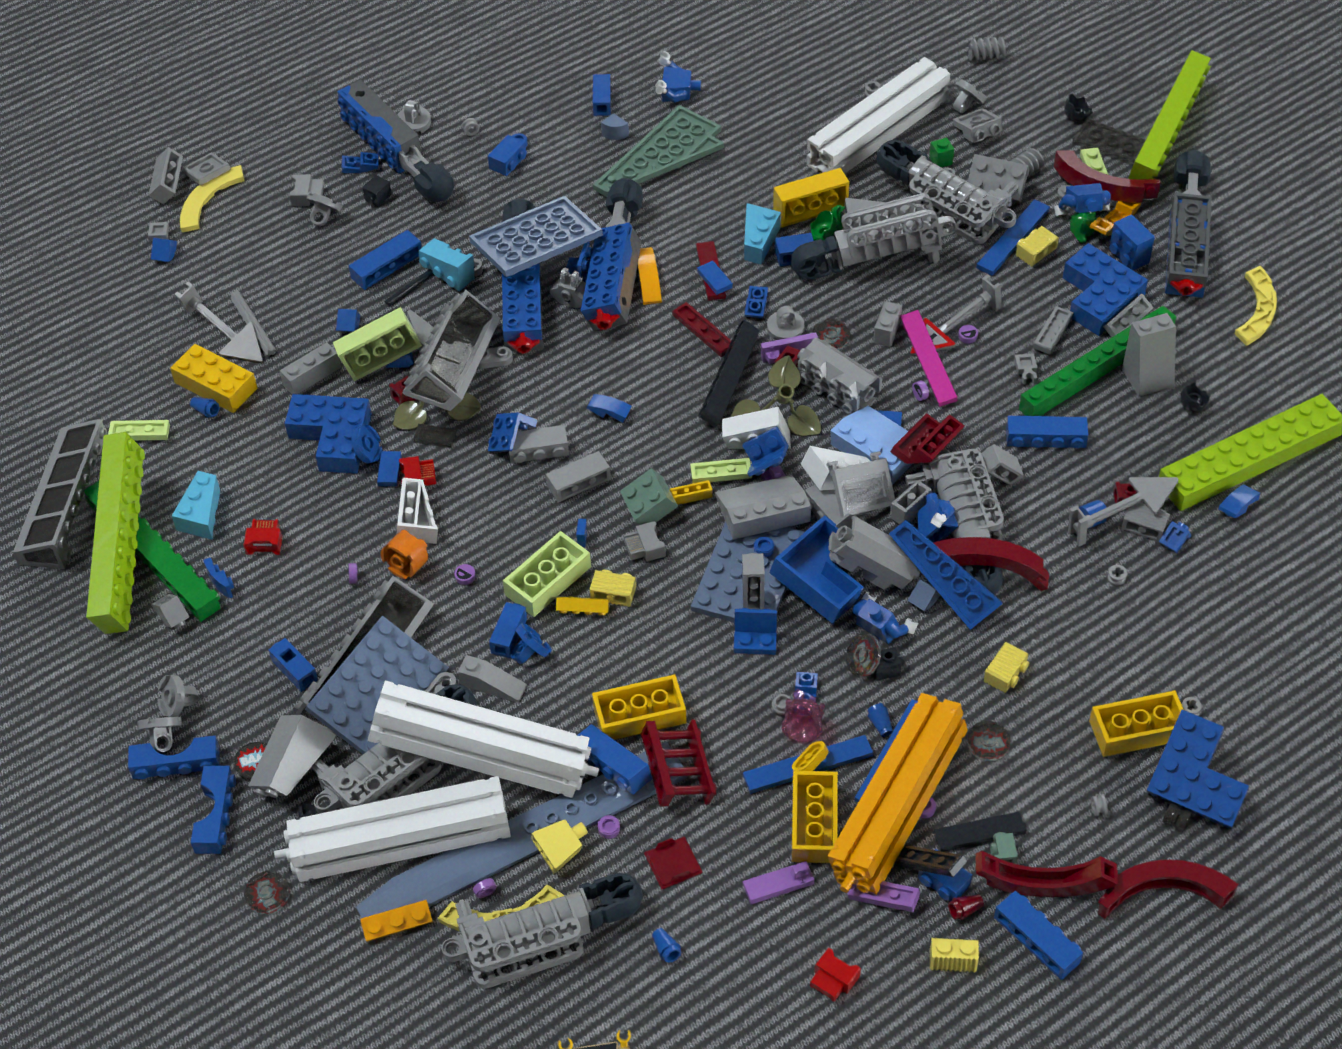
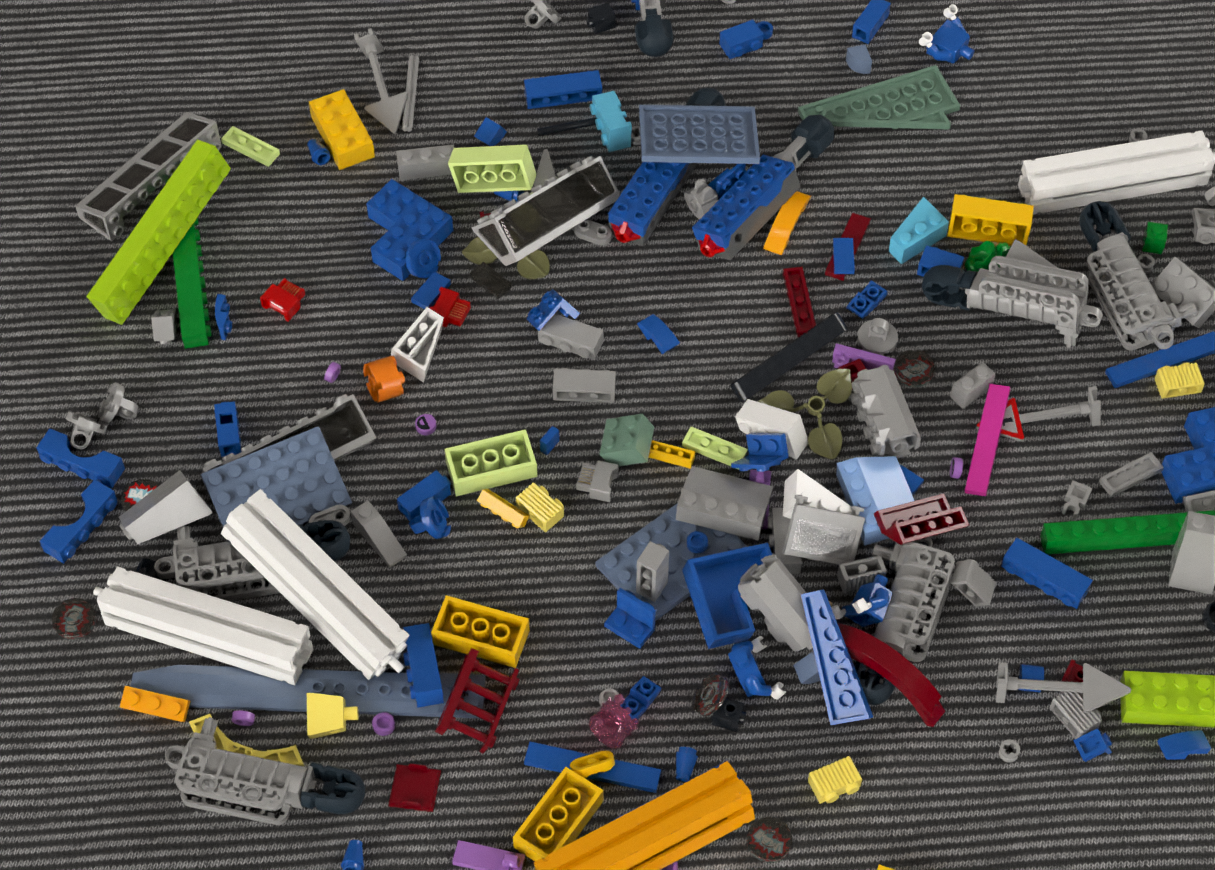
camera: 30 degrees right, 5 degrees up
(198, 506) = (250, 241): medium azure wedge -> none
(968, 334) = (1045, 435): medium lavender tile -> none

